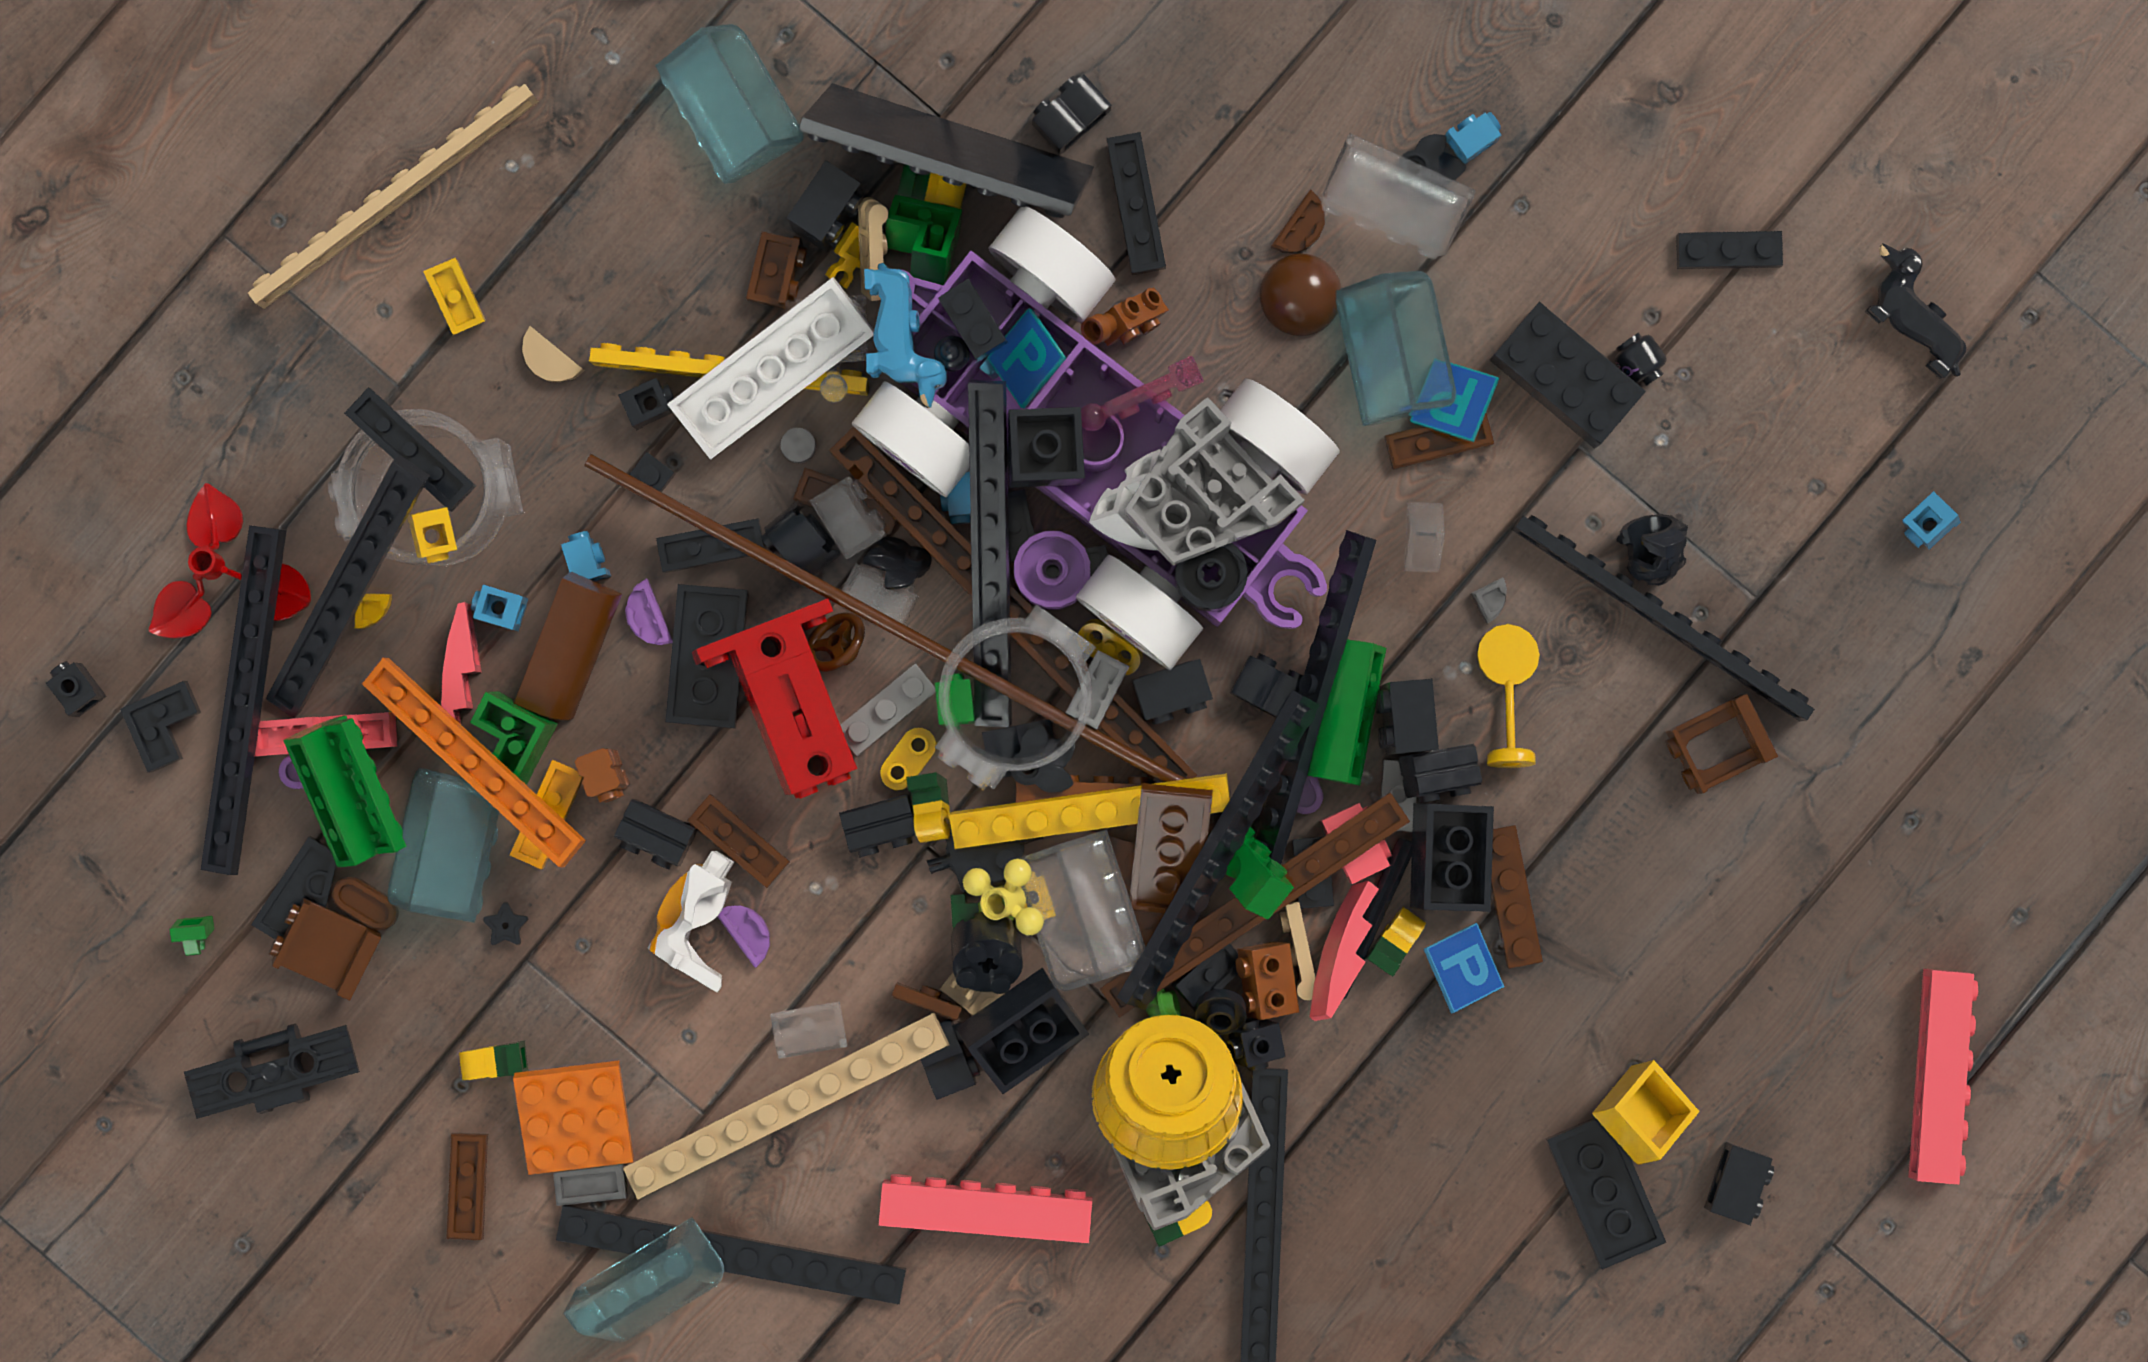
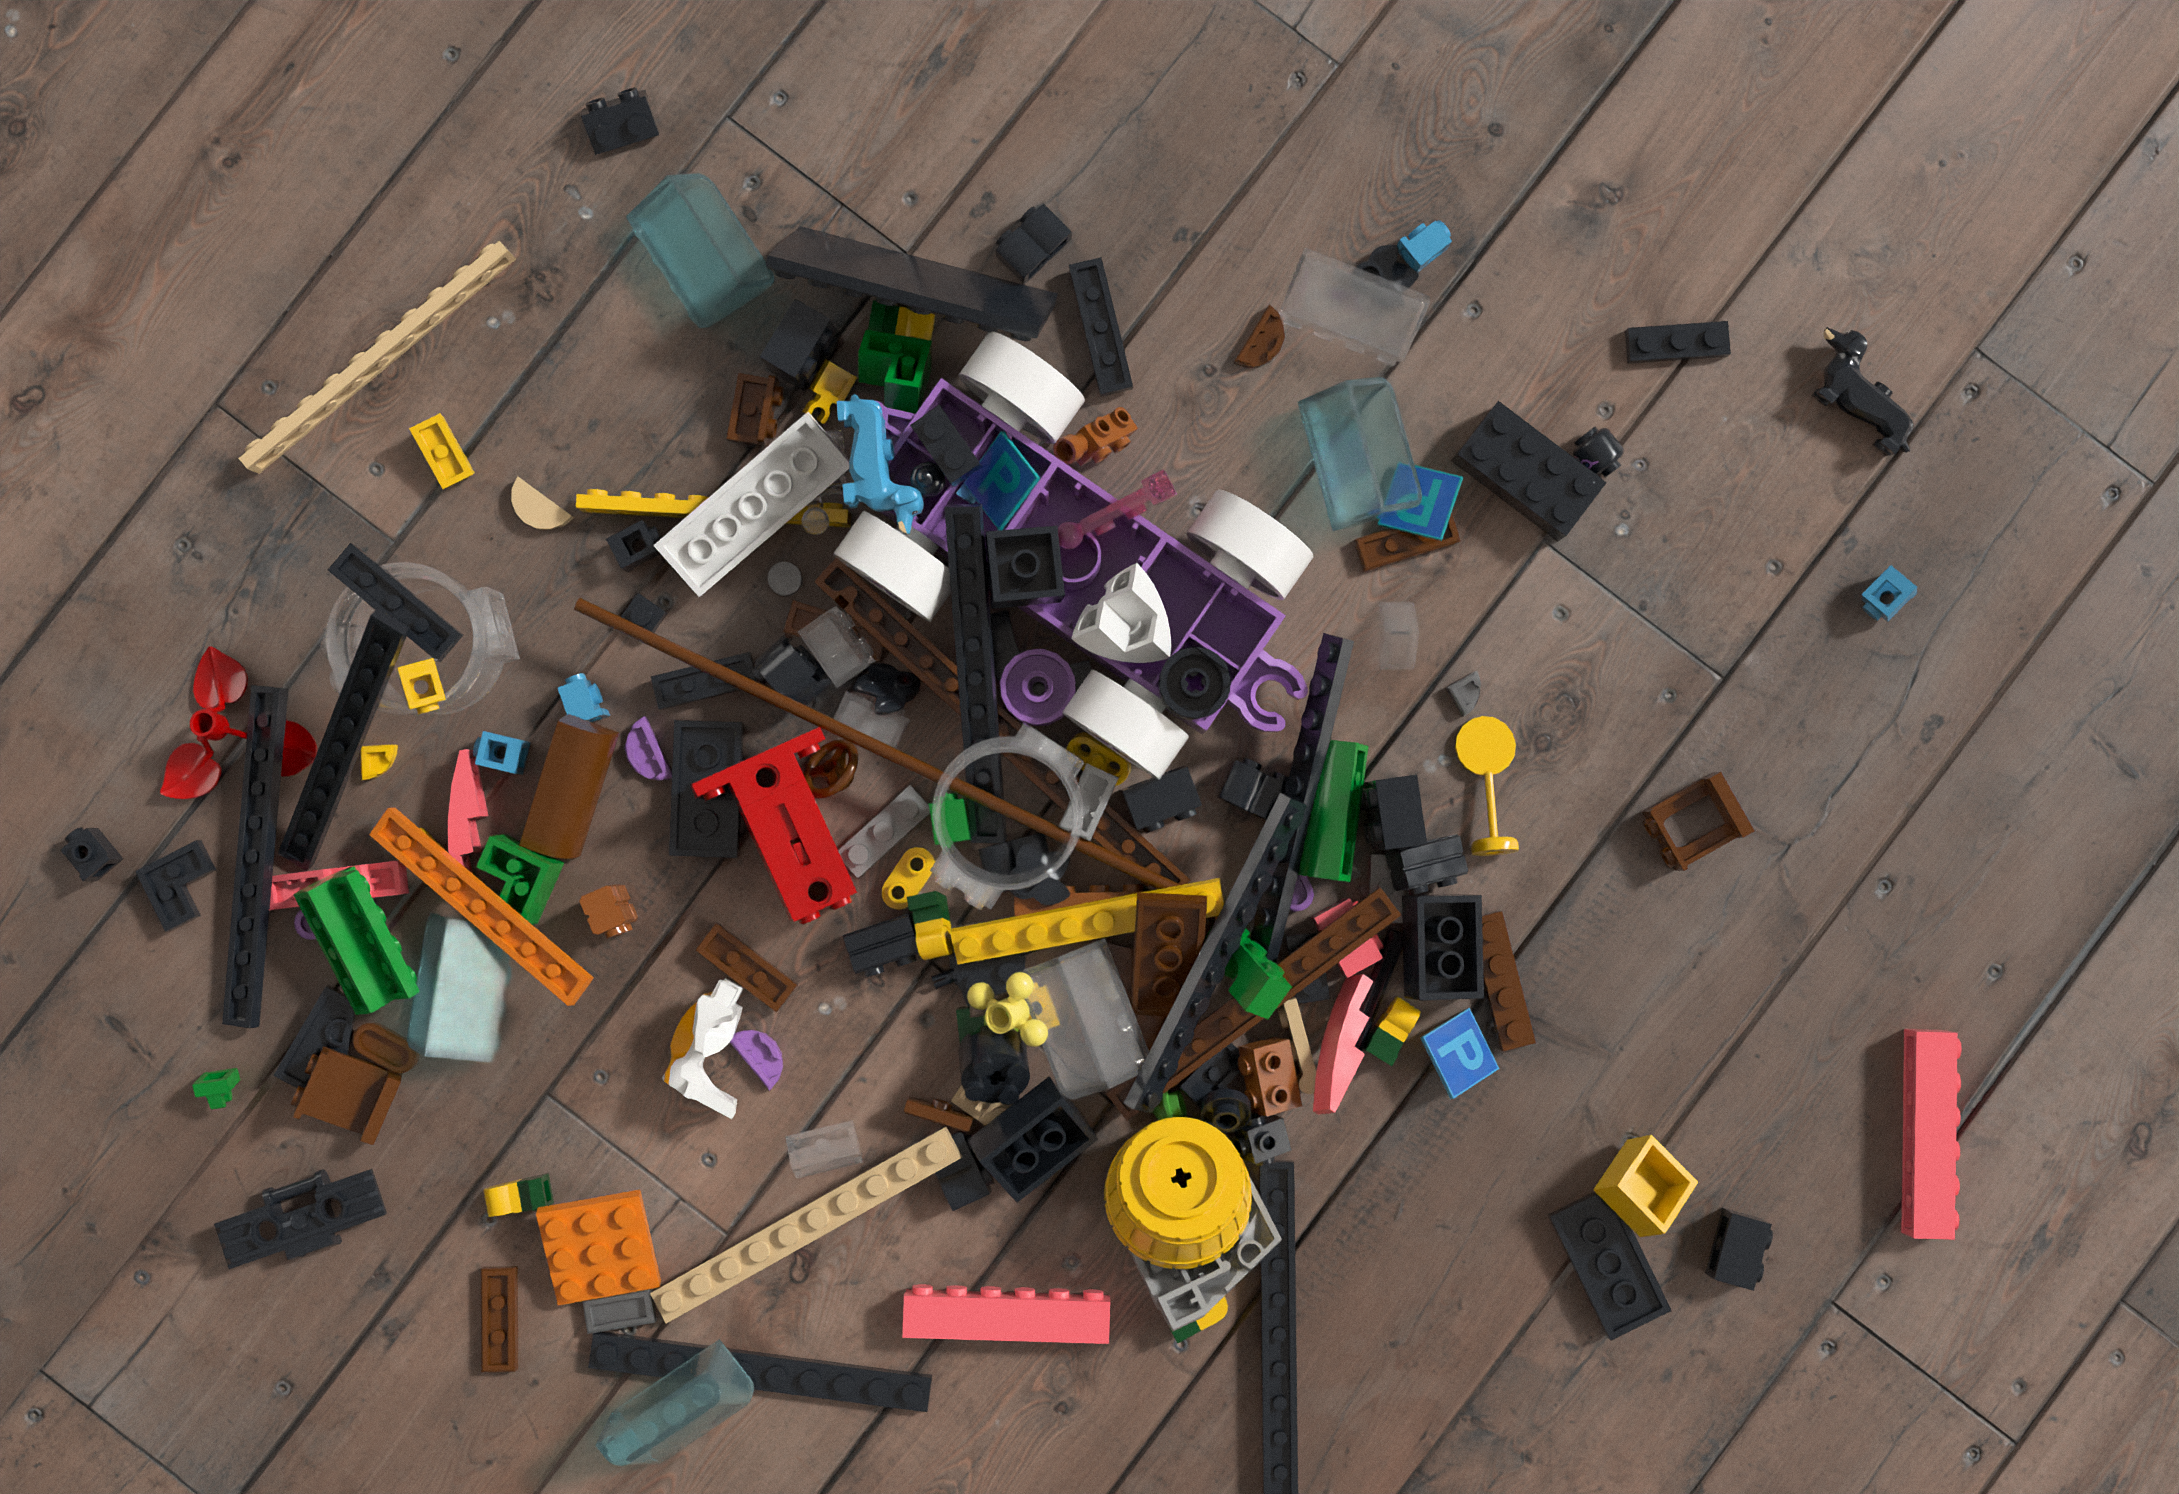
camera: 10 degrees left, 0 degrees up
(496, 921) = (532, 1058): black plate -> none
(558, 792) = (566, 932): light orange plate -> none
(655, 833) = (665, 965): black brick -> none
(871, 240) = (845, 374): tan plate -> none
(958, 502) = (942, 626): dark azure brick -> none
(1206, 490) = (1186, 601): light grey wedge -> none
(1300, 294) = (1264, 407): reddish brown piece -> none
(1654, 547) = (1623, 634): black helmet -> none
(1674, 624) = (1645, 708): black plate -> none

